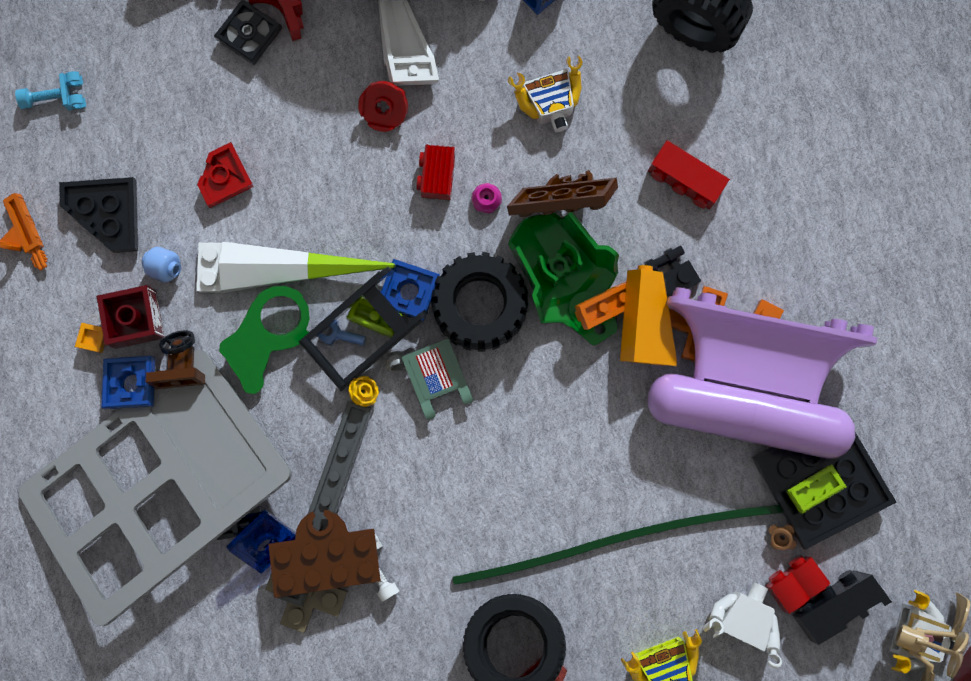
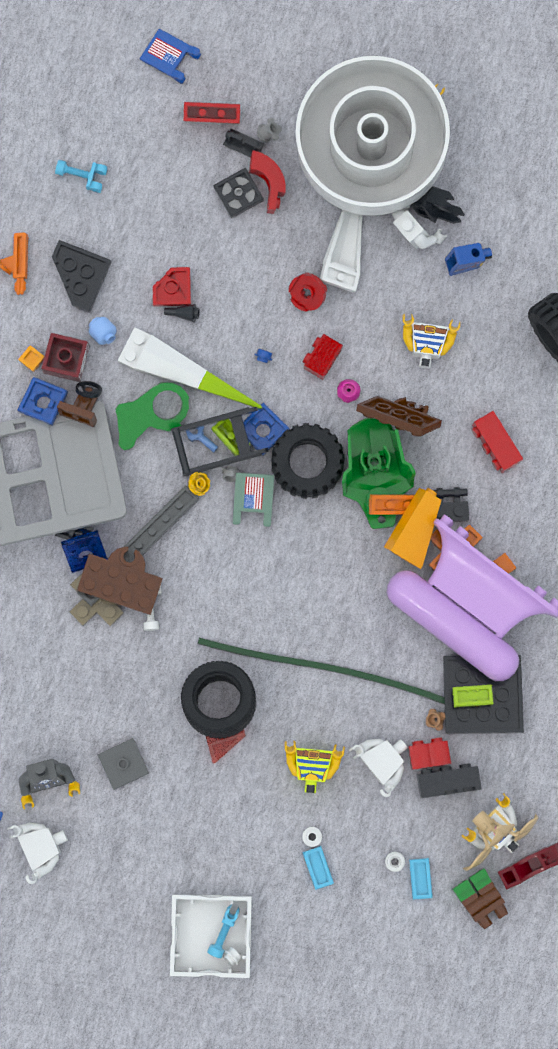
camera: 25 degrees right, 0 degrees up
(253, 196) = (187, 312): none -> black cone
(367, 204) = (263, 355): none -> blue plate

